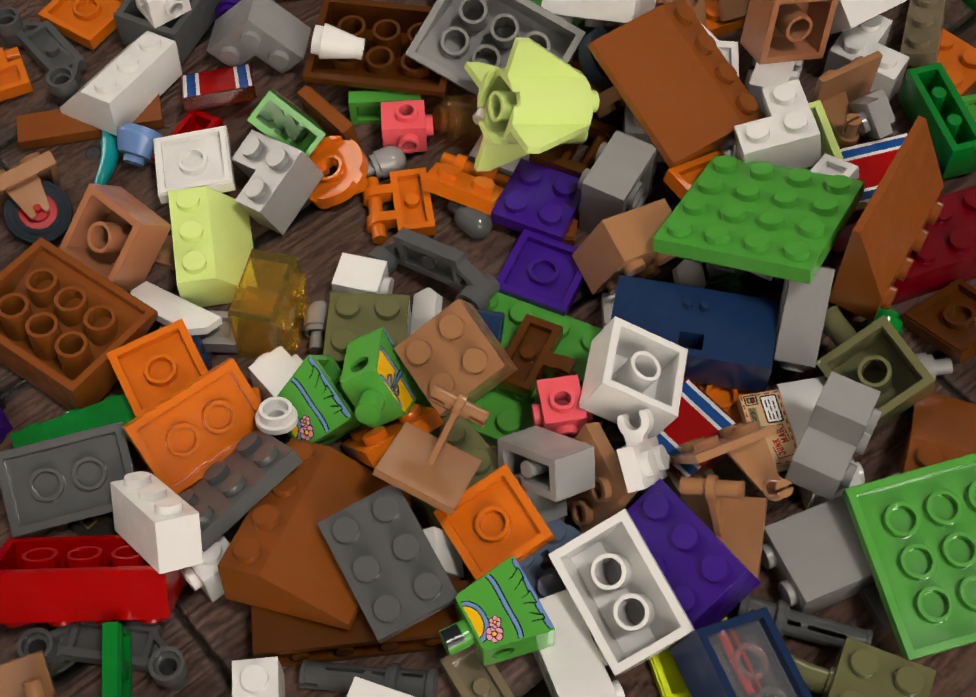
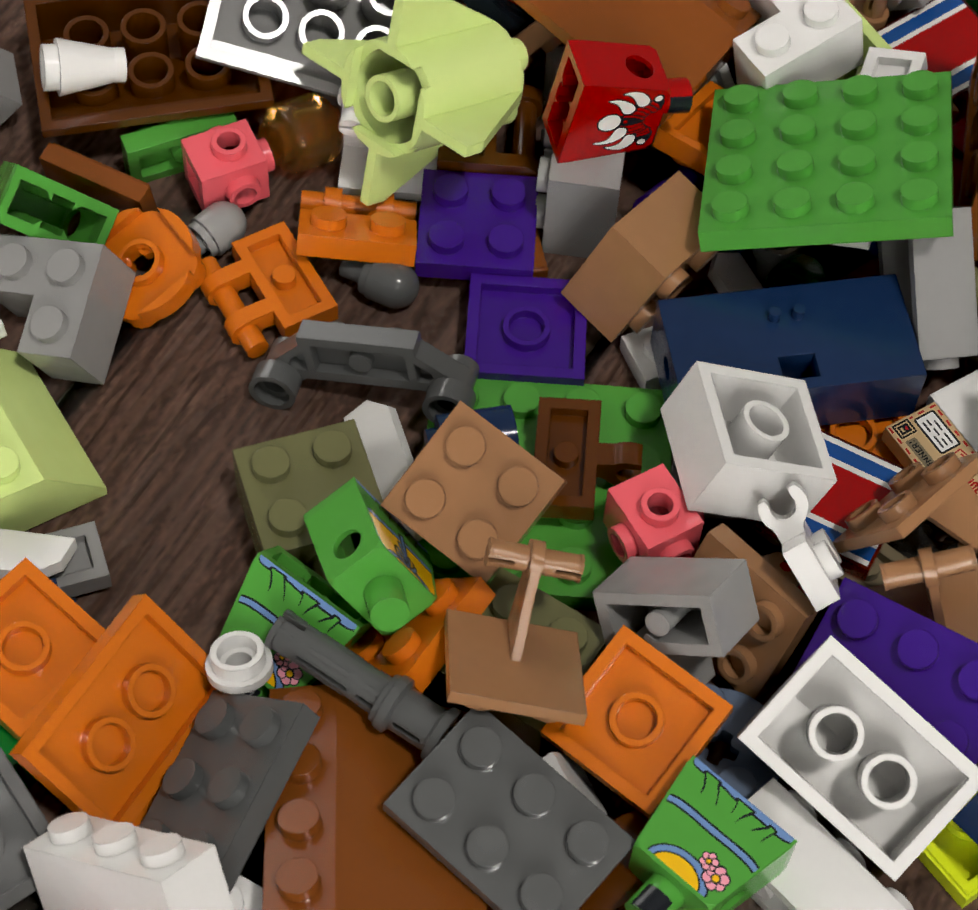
camera: 25 degrees left, 0 degrees up
(268, 304) = (146, 499): clear yellow brick -> none
(273, 371) = (198, 597): white brick -> none
(315, 325) = (222, 506): light grey cylinder -> none
(351, 465) = (387, 699): none -> dark grey pin
(362, 275) = (261, 413): white brick -> none
(635, 142) = (609, 99): none -> red torso

